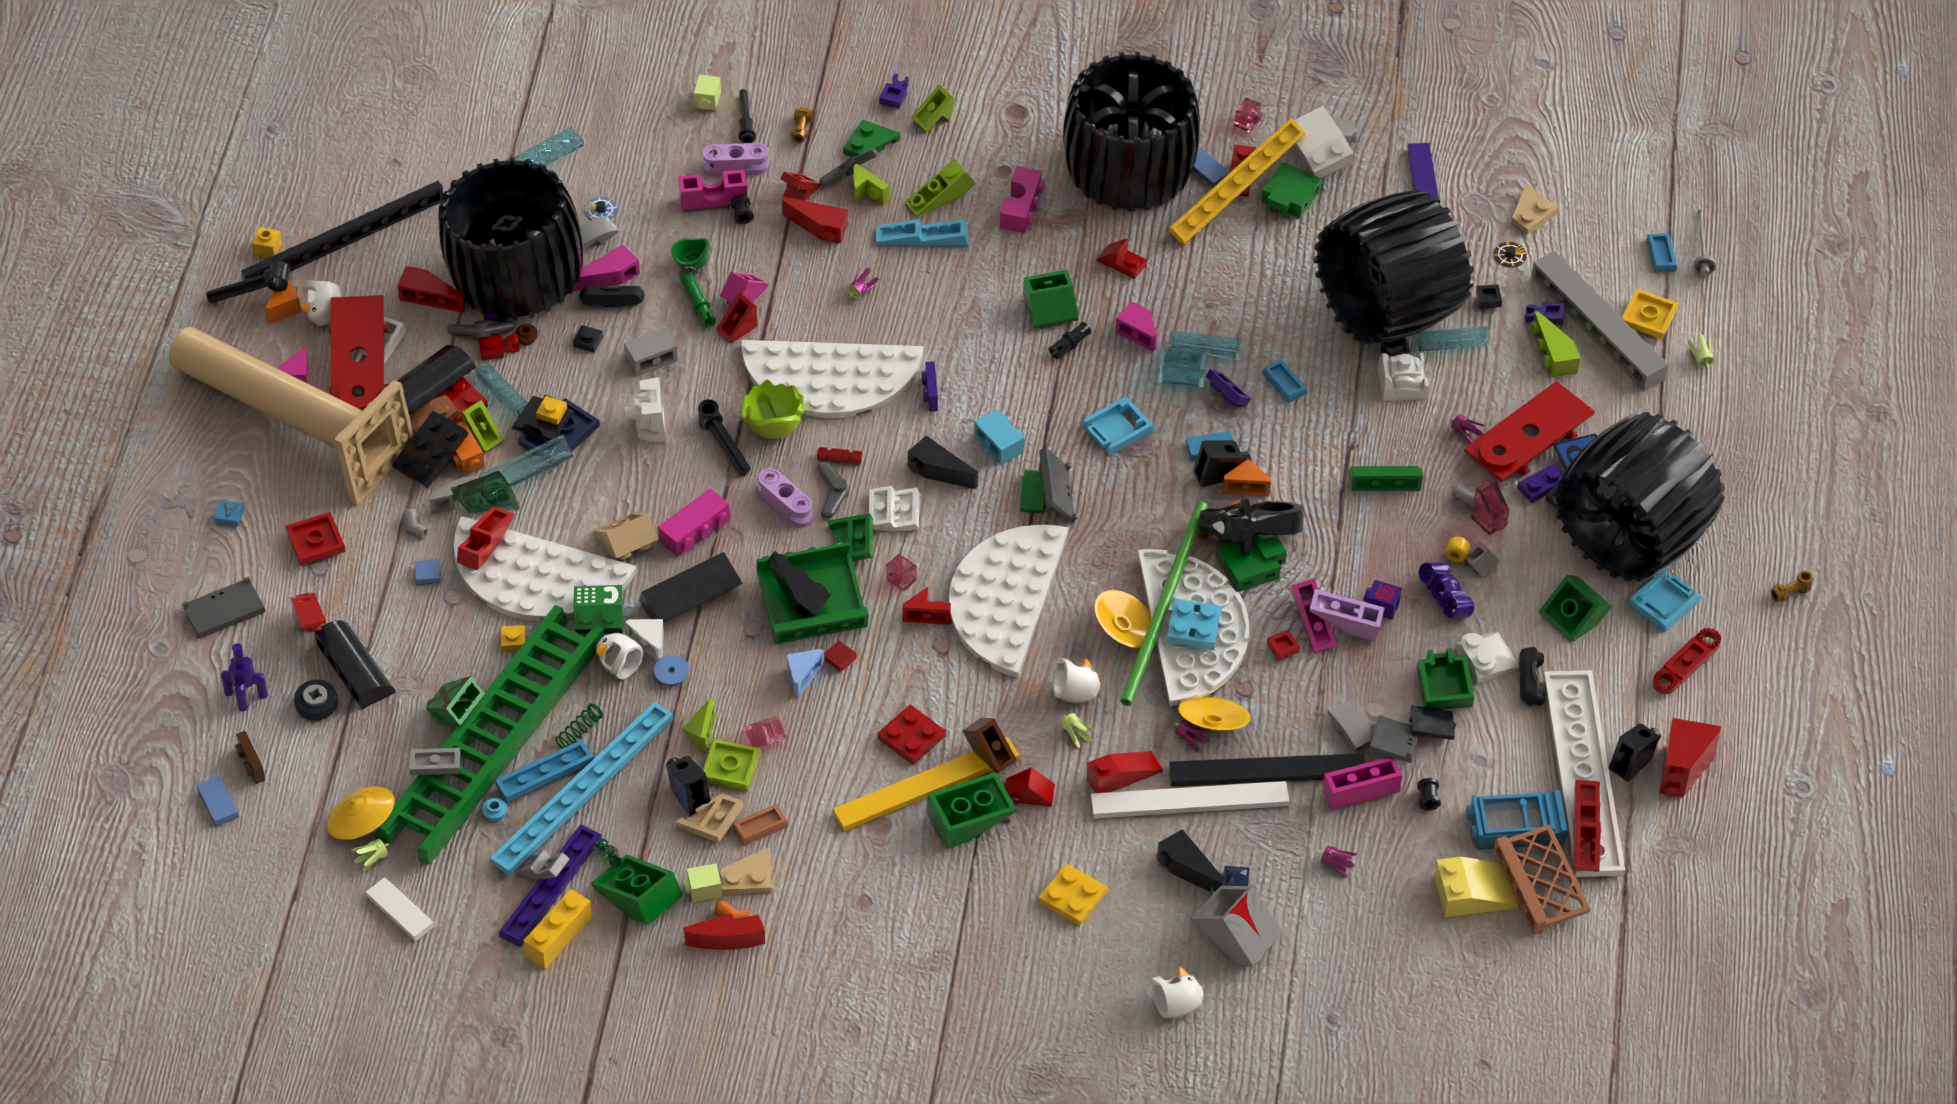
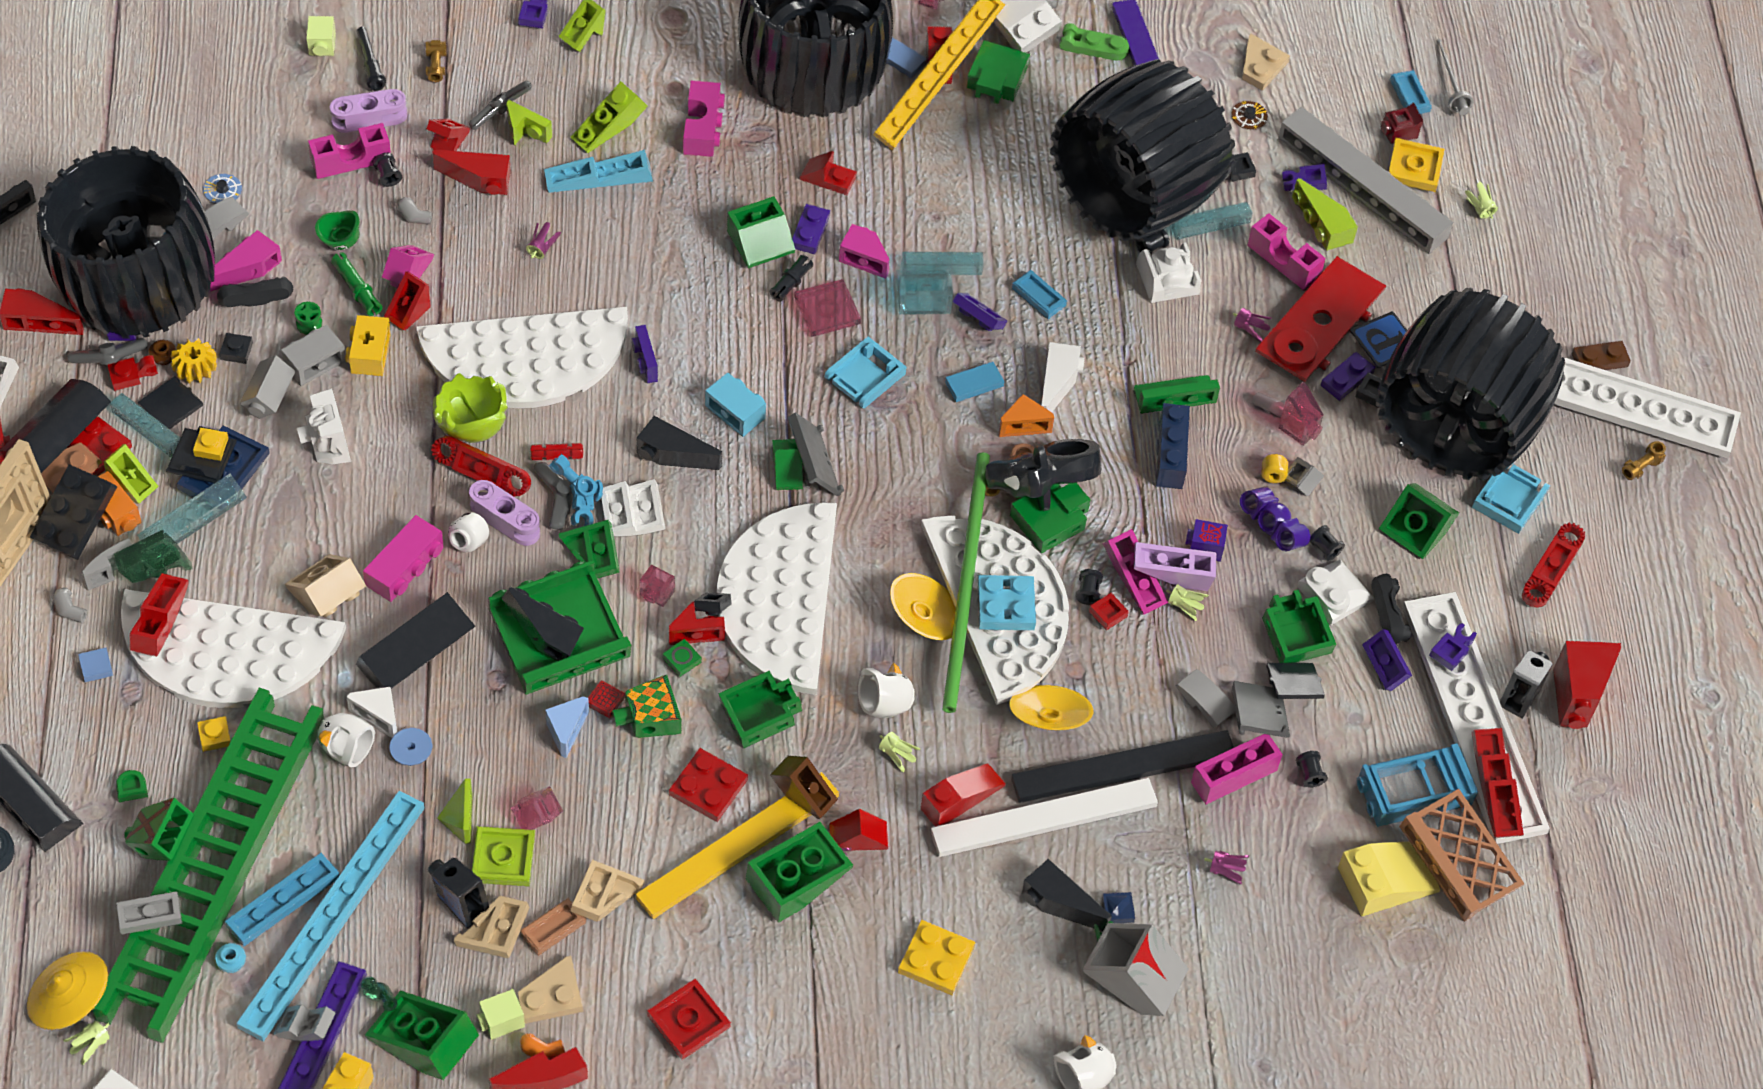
camera: 15 degrees left, 5 degrees up
(439, 668) = (131, 786): none -> green tile
(526, 375) = (171, 402): none -> black piece
(550, 343) = (193, 360): none -> yellow gear
(553, 148) = (148, 126): clear light blue plate -> none
(592, 715) = (327, 817): green piece -> none
(598, 606) = (310, 682): green slope -> none
(607, 372) = (267, 387): none -> light grey brick
(651, 320) = (303, 313): none -> green wheel
(698, 350) = (369, 345): none -> yellow brick
(714, 423) = (404, 432): black axle -> none
(751, 509) = (468, 532): none -> white head
(755, 247) = (411, 213): none -> light grey arm
(773, 457) = (480, 465): none -> red plate
(807, 802) = (604, 891): none -> tan wing
(854, 486) = (583, 488): none -> dark azure piece
(856, 909) = (688, 1019): none -> red plate
(868, 137) = (515, 67): green wing -> none
(874, 668) = (650, 709): none -> green torso
(910, 632) = (682, 658): none -> green tile
(944, 591) = (712, 603): none -> black plate
(967, 679) = (760, 708): none -> green piece
(1096, 302) = (810, 228): none -> dark purple plate
(1096, 369) = (827, 307): none -> clear pink tile
(1187, 730) = (1023, 731): flat silver piece -> none
(1216, 460) = (989, 401): black torso -> none
(1271, 623) = (1089, 586): none -> black bush
(1286, 448) = (1060, 373): none -> white slope
(1353, 645) = (1186, 600): none -> yellowish green piece
(1370, 519) = (1172, 446): none -> dark blue brick
(1382, 176) = (1093, 43): none -> bright green plate
(1488, 615) = (1326, 542): none -> black bush
(1499, 361) = (1270, 242): none -> dark pink arch
(1517, 716) = (1387, 660): none -> dark purple plate
(1574, 715) = (1452, 649): none -> dark purple plate
(1645, 277) = (1402, 123): none -> dark red window
(1777, 496) = (1603, 356): none -> reddish brown plate
(1801, 540) = (1648, 408): none -> white plate

